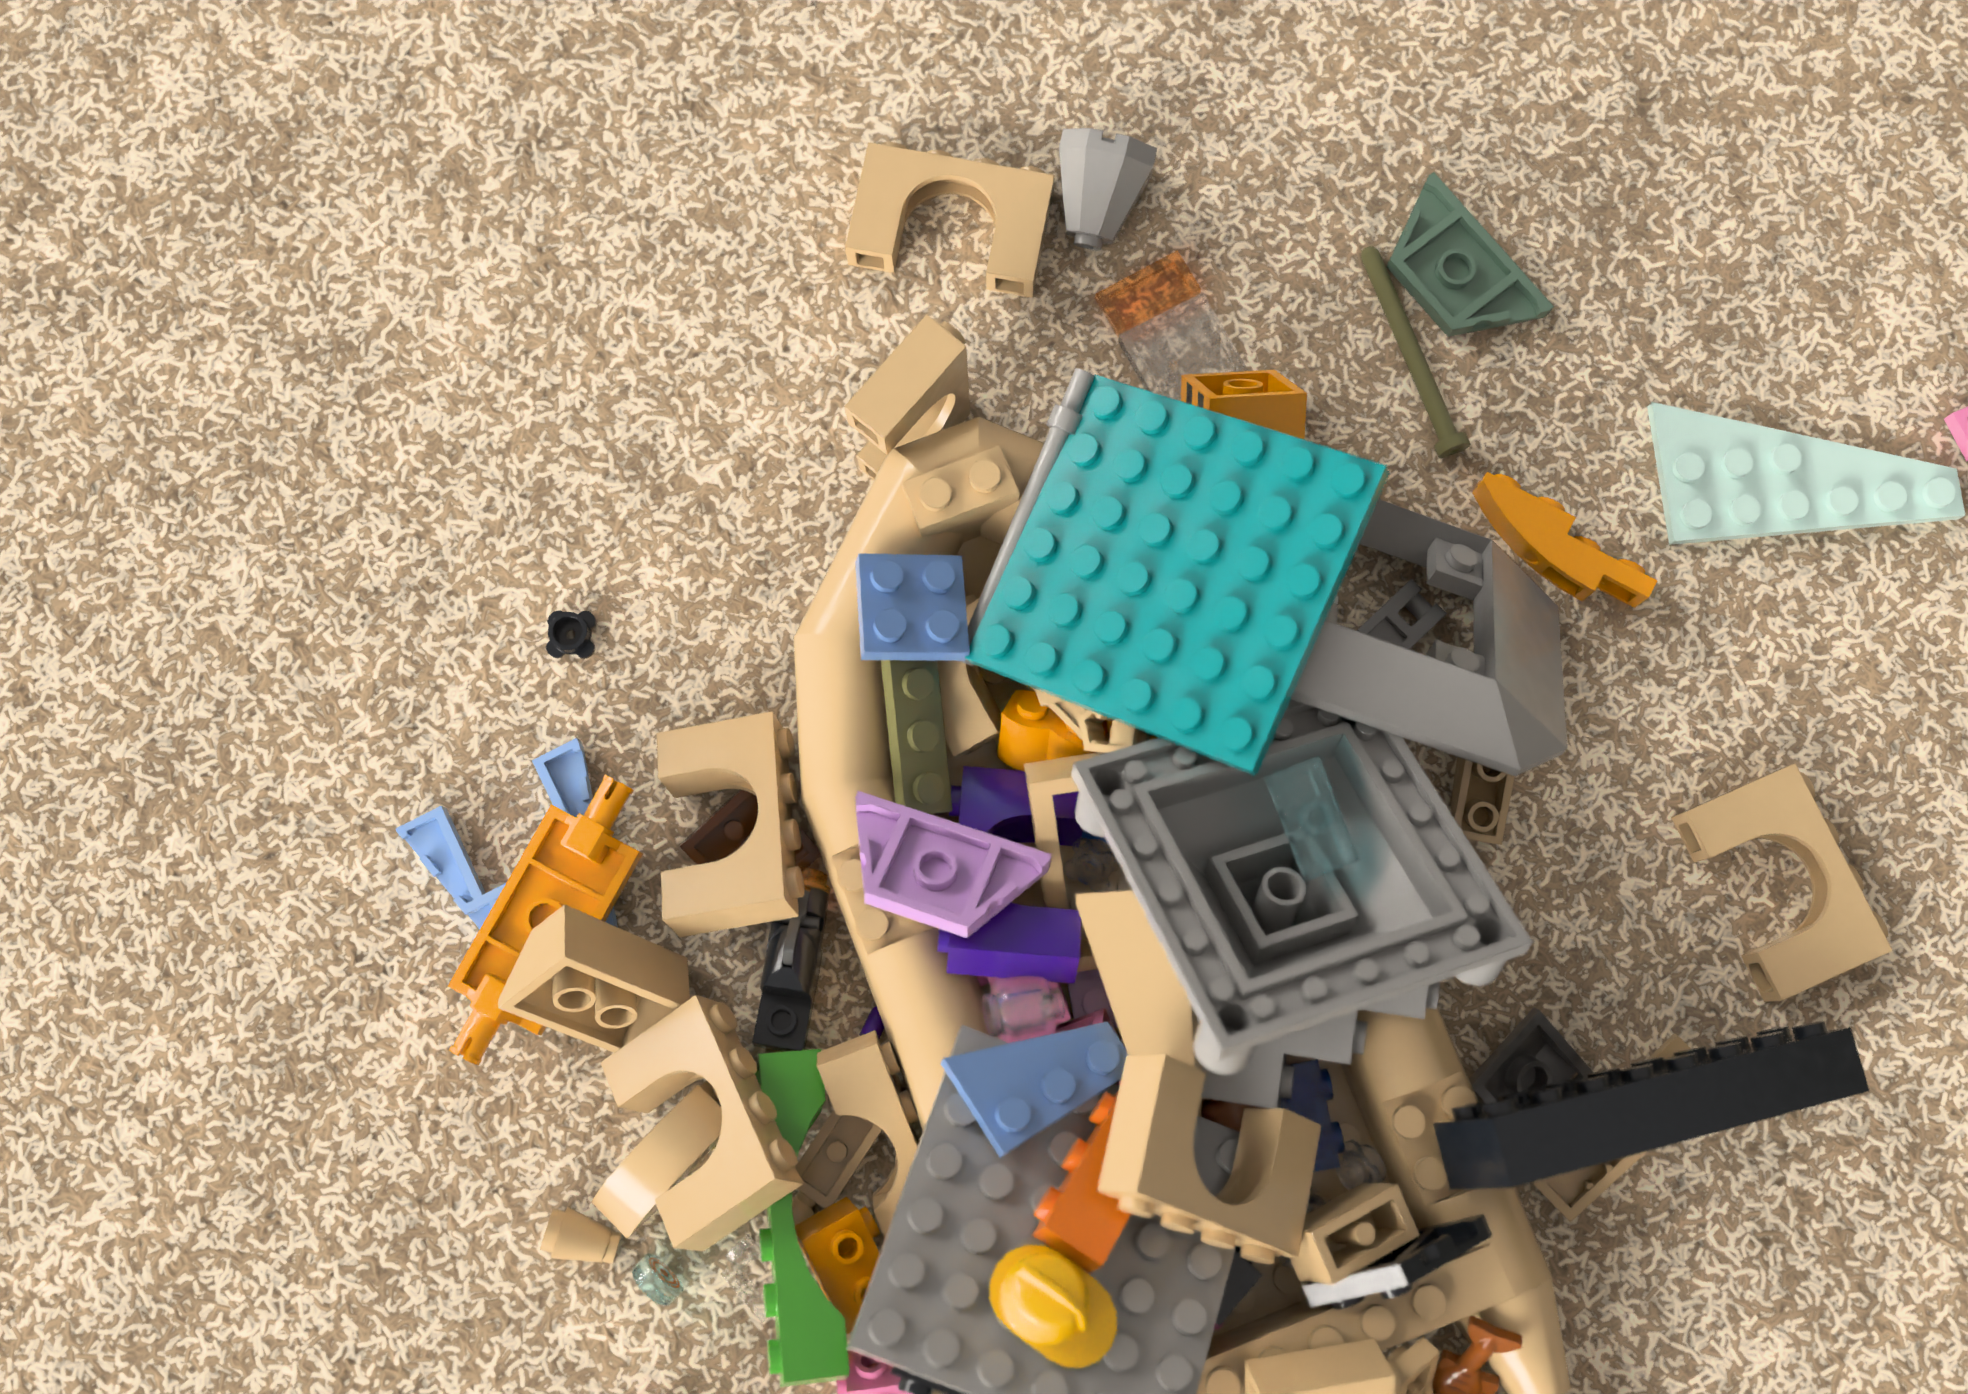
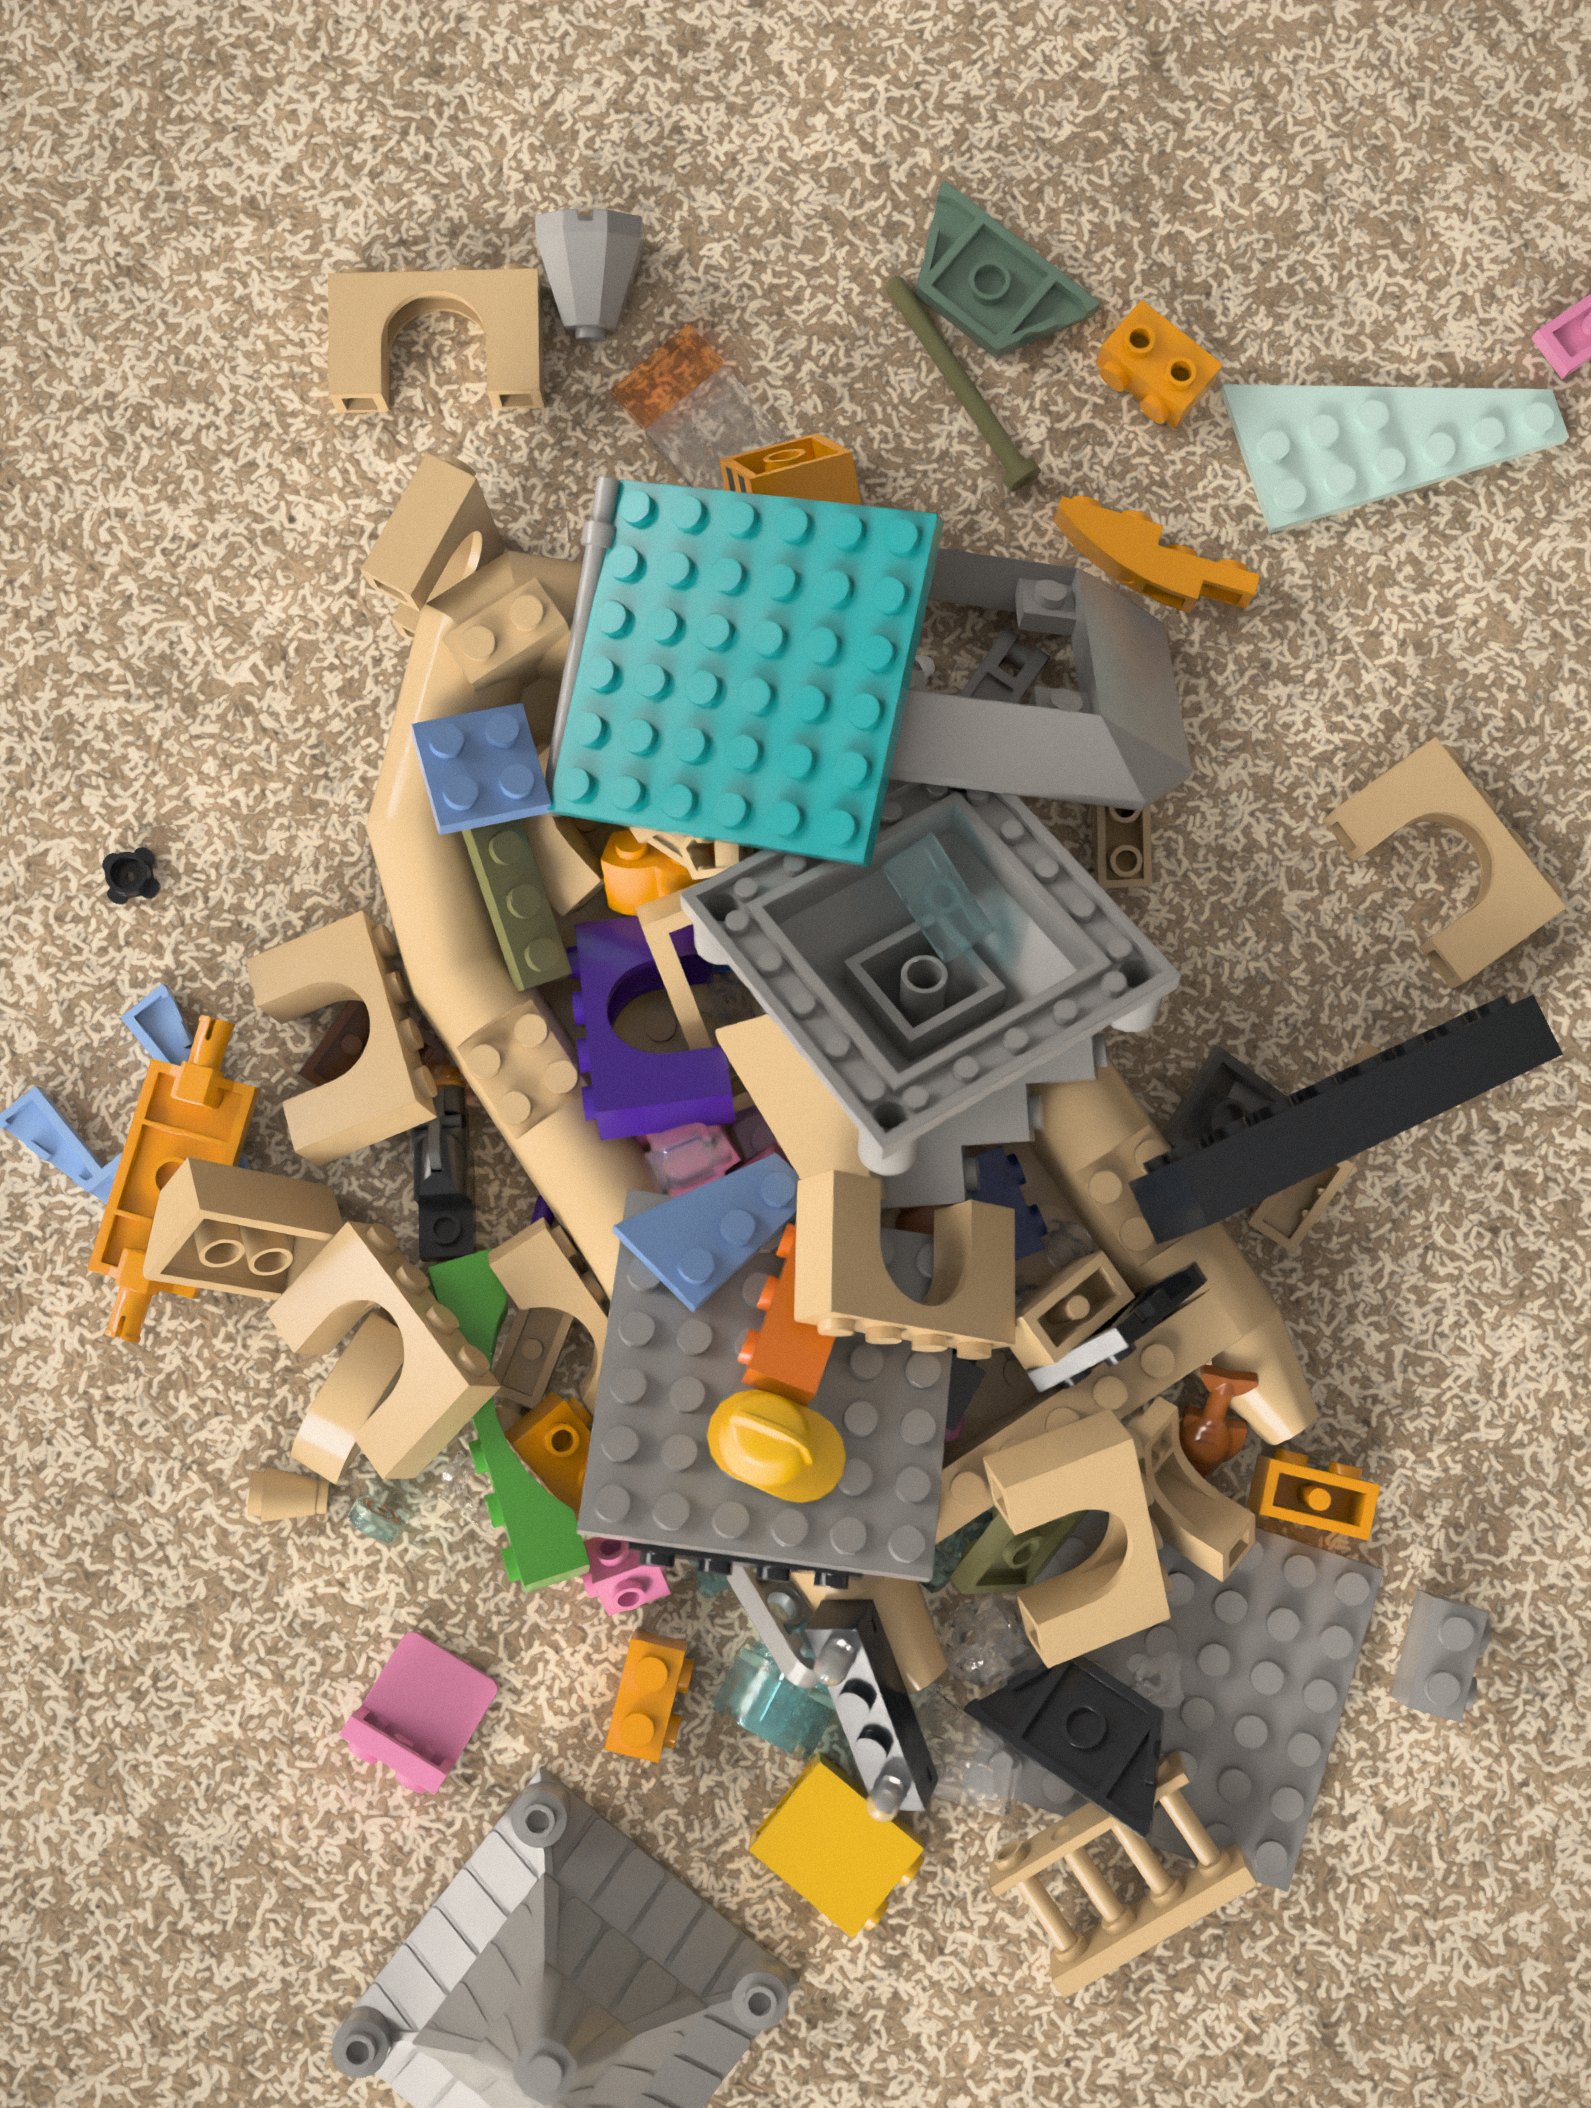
camera: 15 degrees left, 5 degrees up
(939, 867) = (568, 1033): lavender wing -> none
(1595, 373) = (1157, 365): none -> light orange brick

